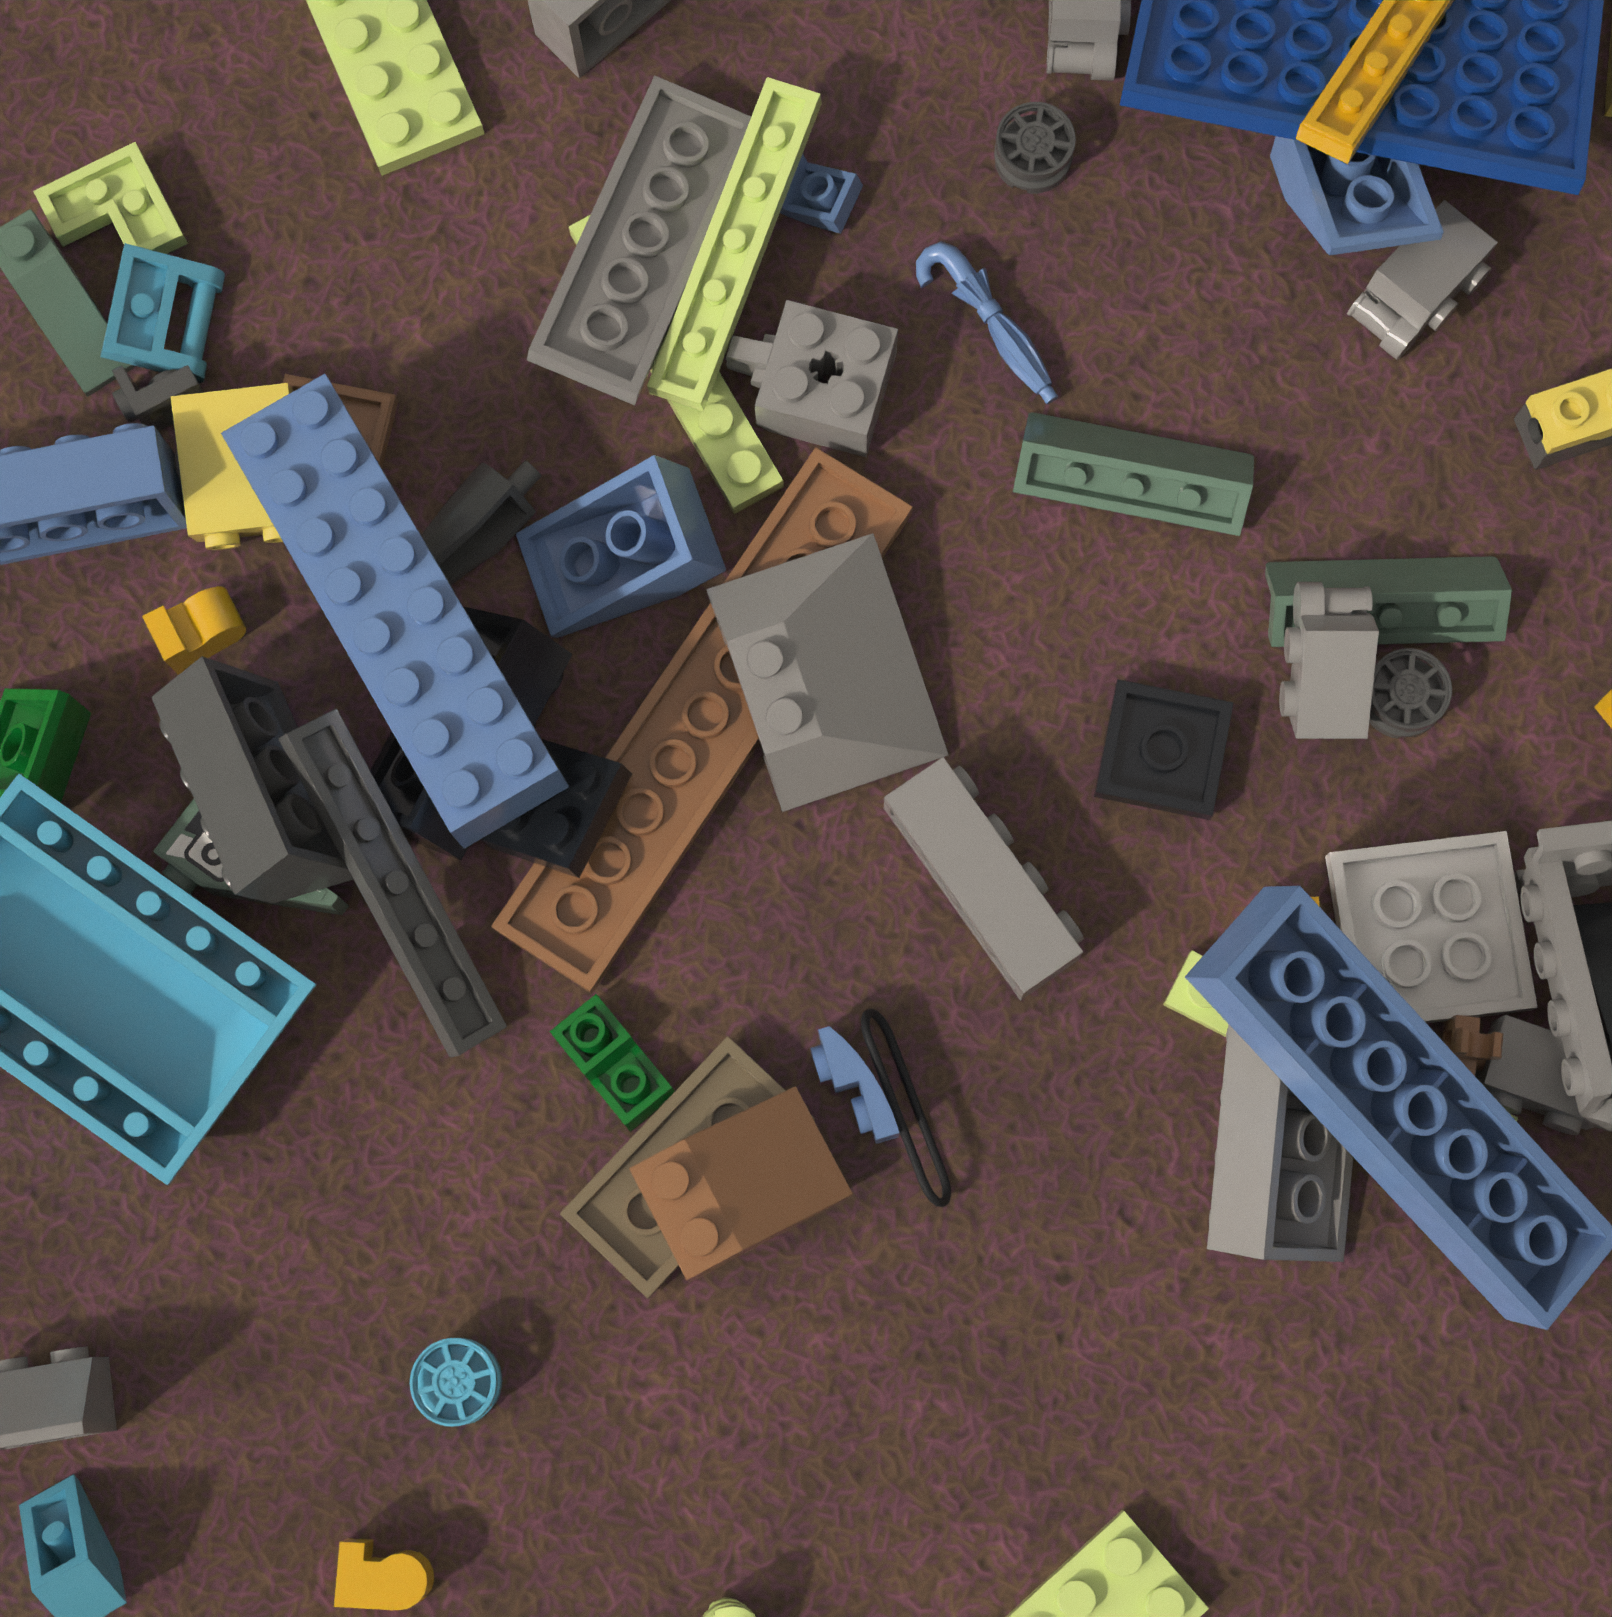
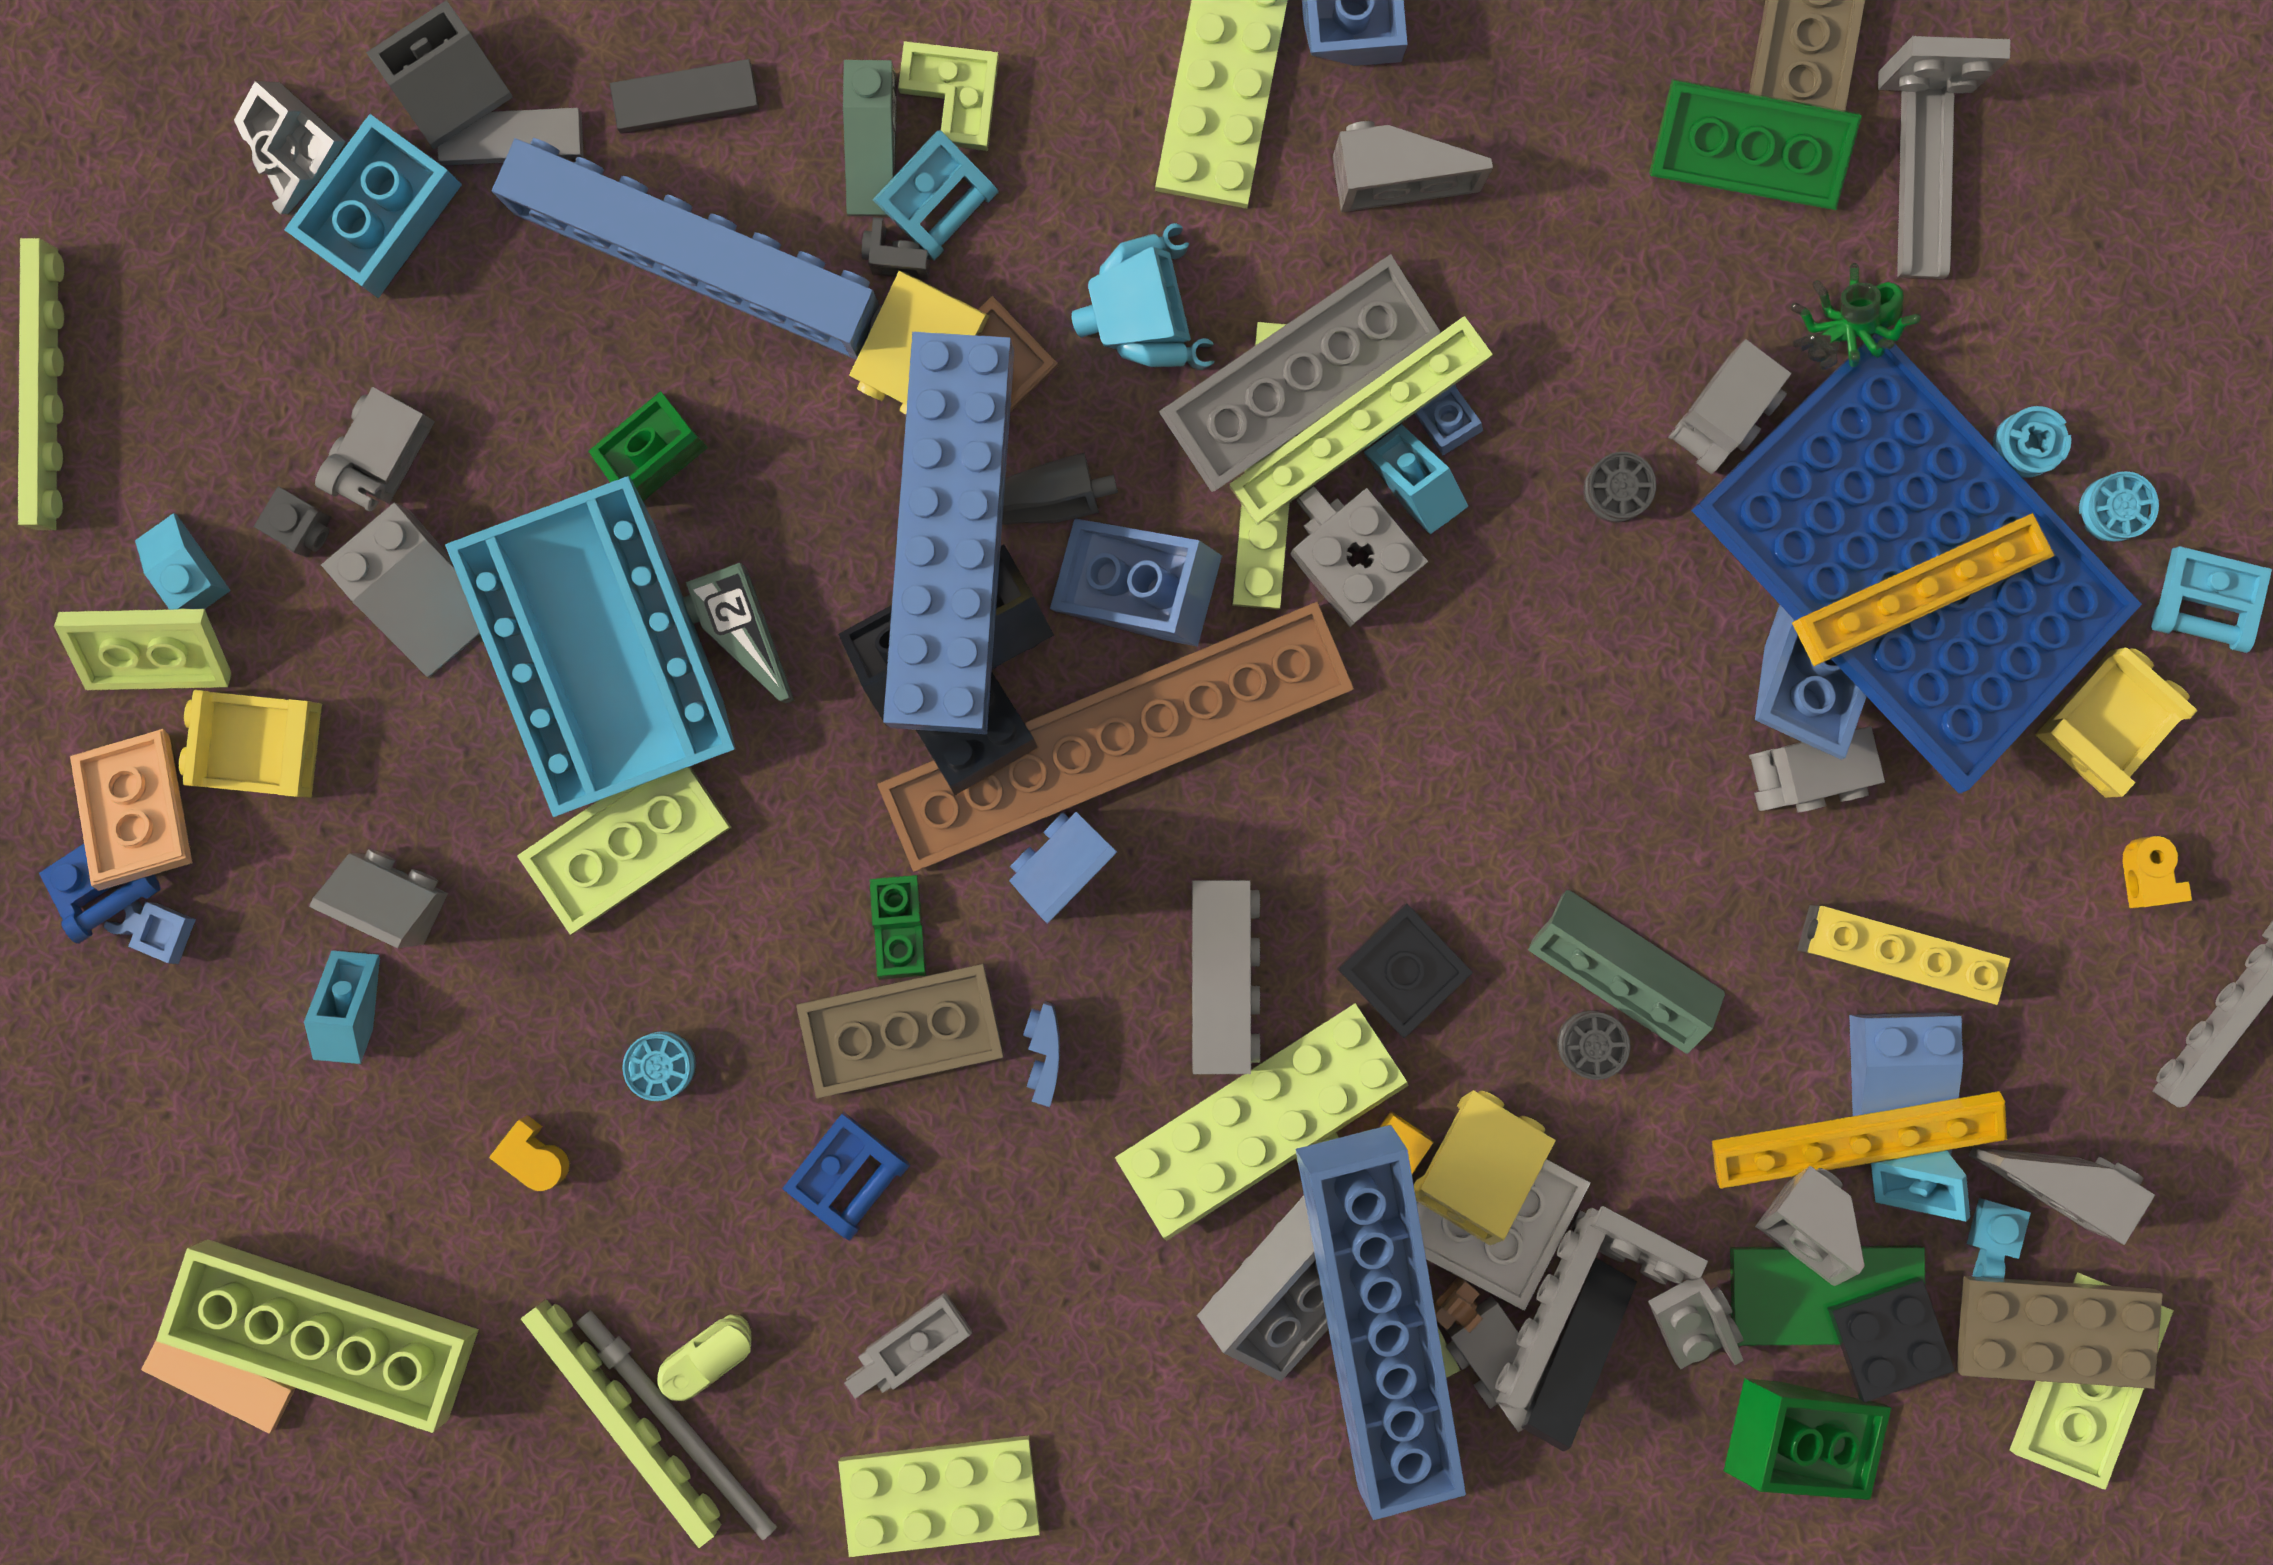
camera: 25 degrees right, 10 degrees up
(195, 627) = (814, 439): yellow leg -> none
(243, 783) = (782, 583): dark grey slope -> none
(263, 1173) = (622, 845): none -> yellowish green plate
(392, 883) = (829, 713): dark grey plate -> none
(441, 282) = (1140, 304): none -> medium azure torso
(714, 1361) = (831, 1168): none -> blue plate
(740, 1183) = (924, 1070): medium nougat slope -> none
(741, 872) = (1061, 865): none -> medium blue slope
(827, 672) = (1217, 763): light grey slope -> none
(832, 267) = (1417, 478): none -> medium azure slope
(915, 1103) = (1076, 1092): black piece -> none
(929, 1499) = (910, 1347): none -> light grey hinge
(974, 289) = (1505, 561): medium blue piece -> none
(1127, 1003) = (1260, 1121): none -> yellowish green plate
(1135, 473) = (1523, 766): sand green panel -> none
(1331, 662) = (1555, 993): light grey hinge -> none
(1392, 884) = (1484, 1167): none -> light yellow panel

